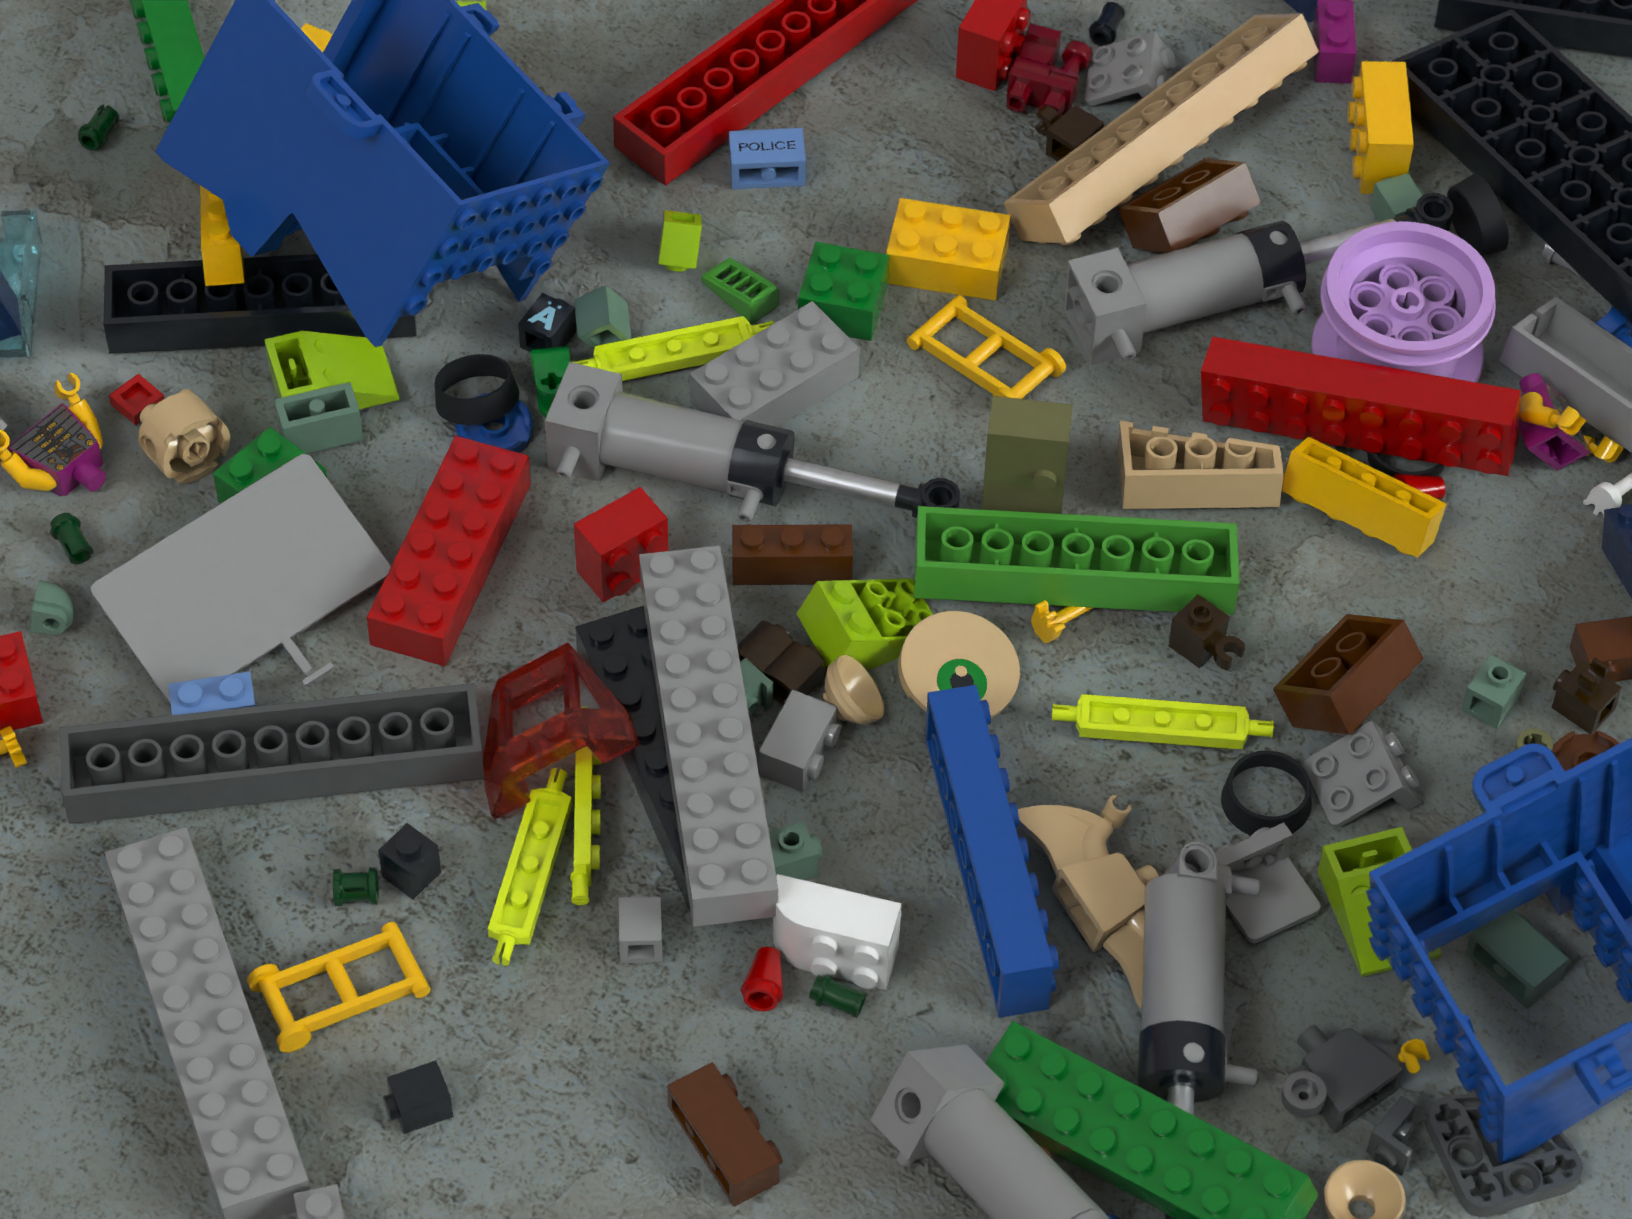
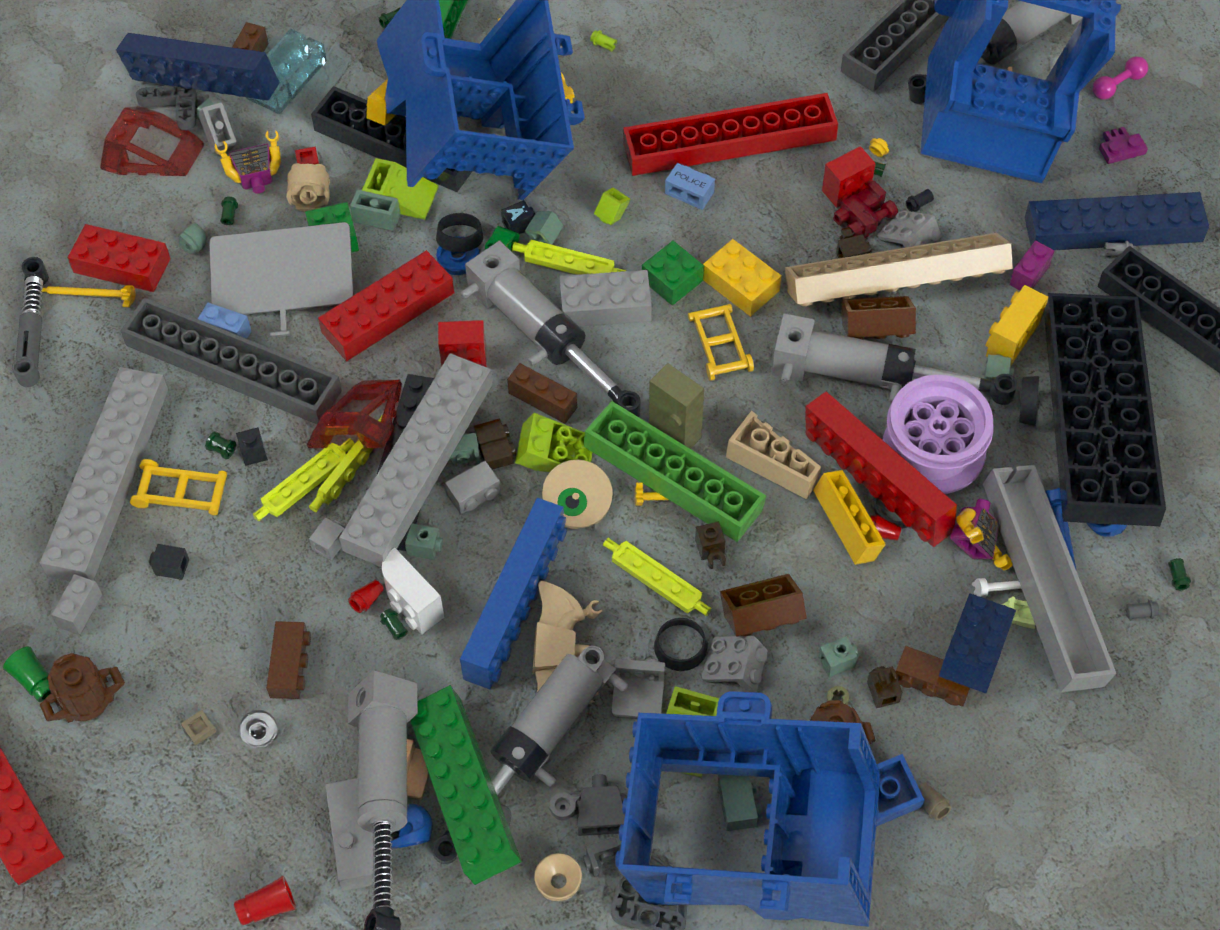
camera: 35 degrees right, 5 degrees up
(753, 308) = (627, 259): bright green slope -> none
(853, 692) = (522, 477): tan piece -> none

